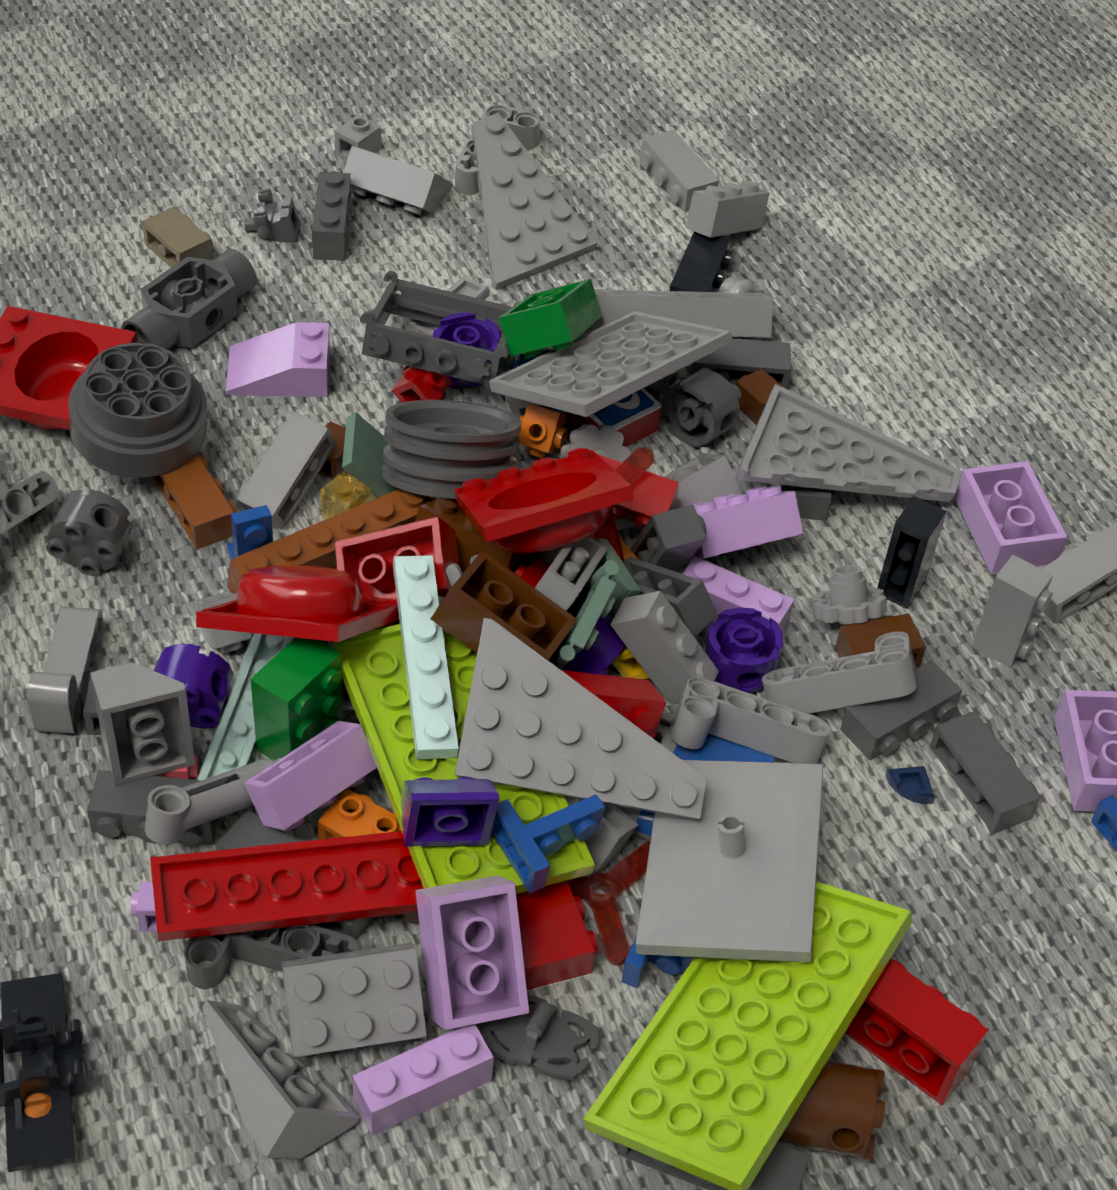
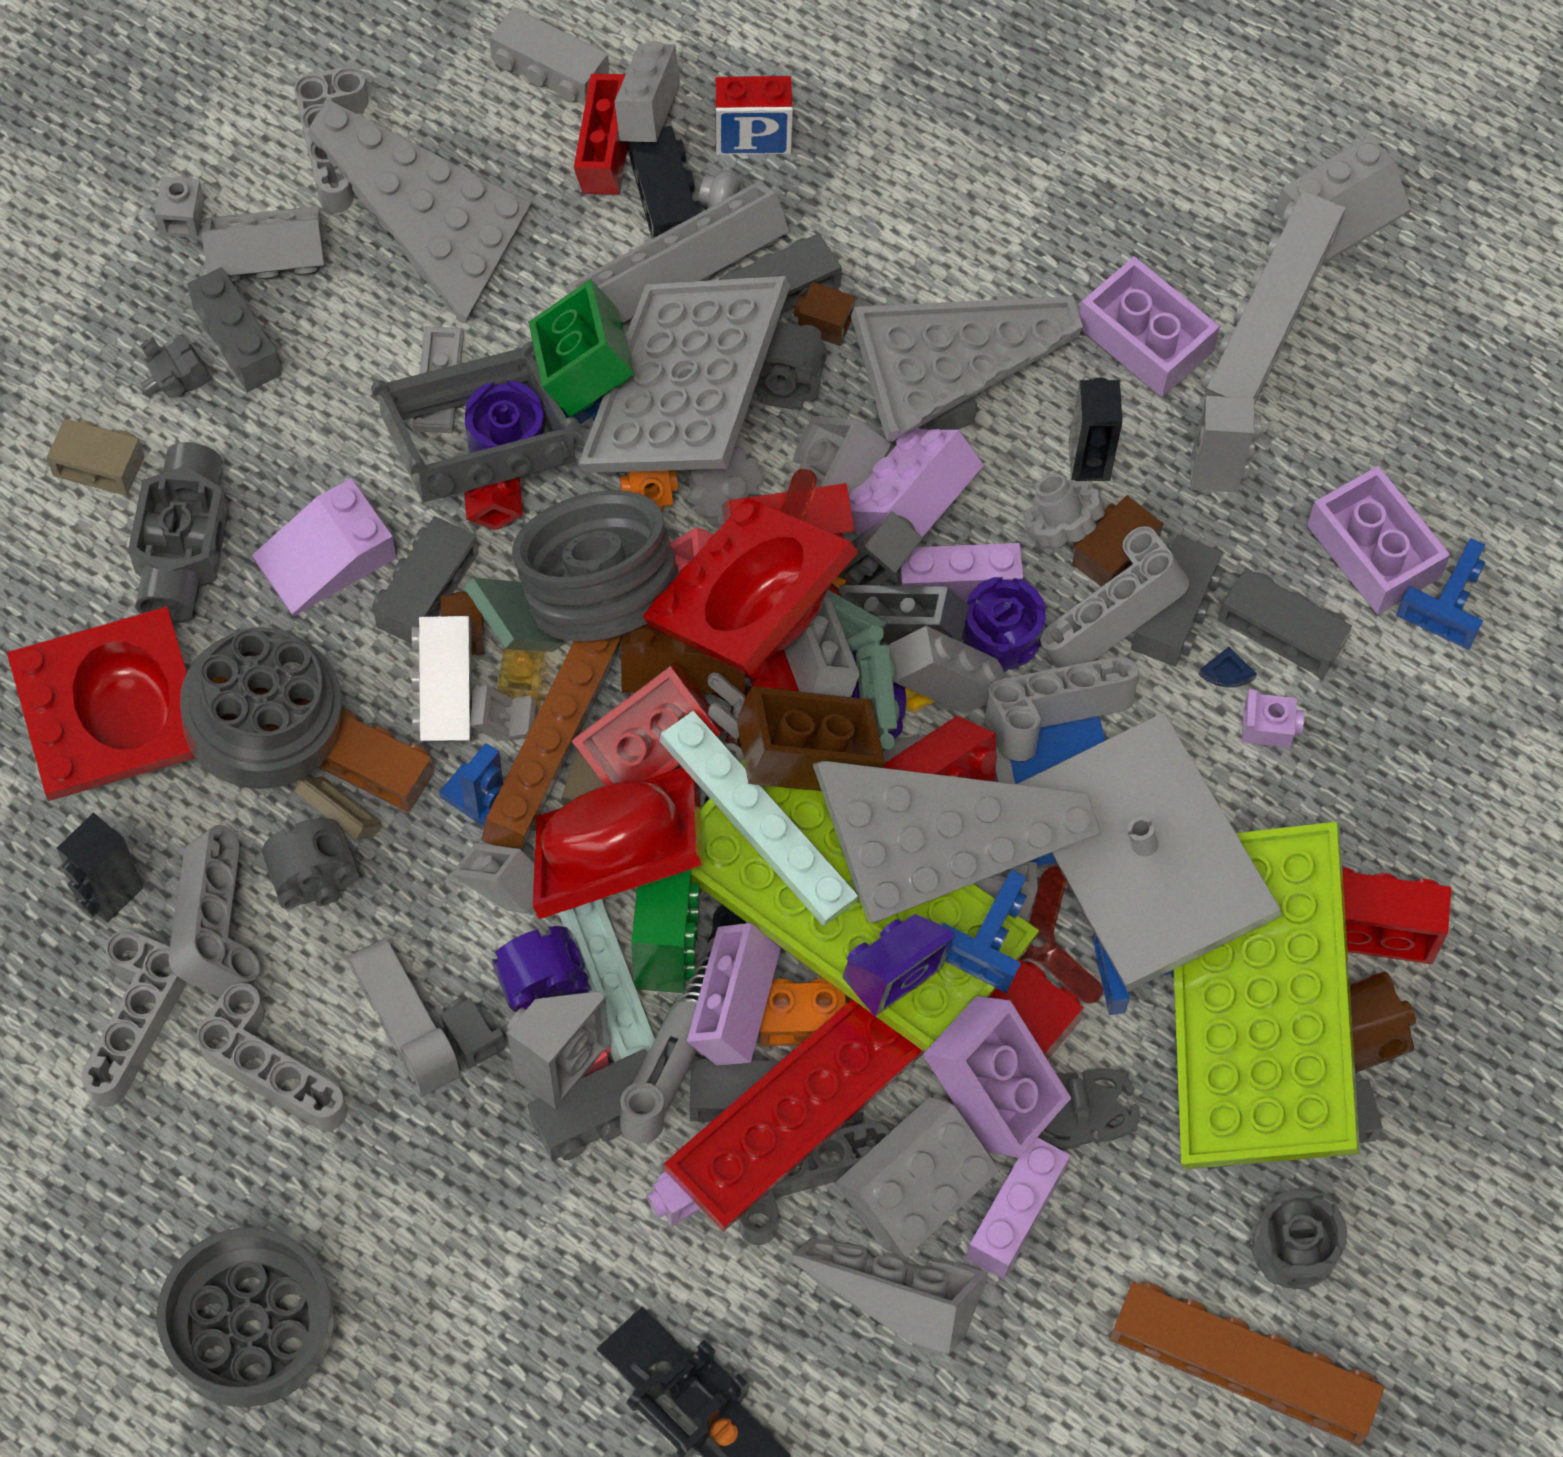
camera: 30 degrees left, 15 degrees up
(146, 515) = (338, 806): none -> dark tan tile
(305, 508) = (501, 715): none -> light grey bracket
(338, 403) = (431, 570): none -> dark grey brick
(665, 232) = (599, 150): none -> red brick
(796, 256) = (753, 114): none -> piece
(922, 835) = (1262, 728): none -> lavender brick

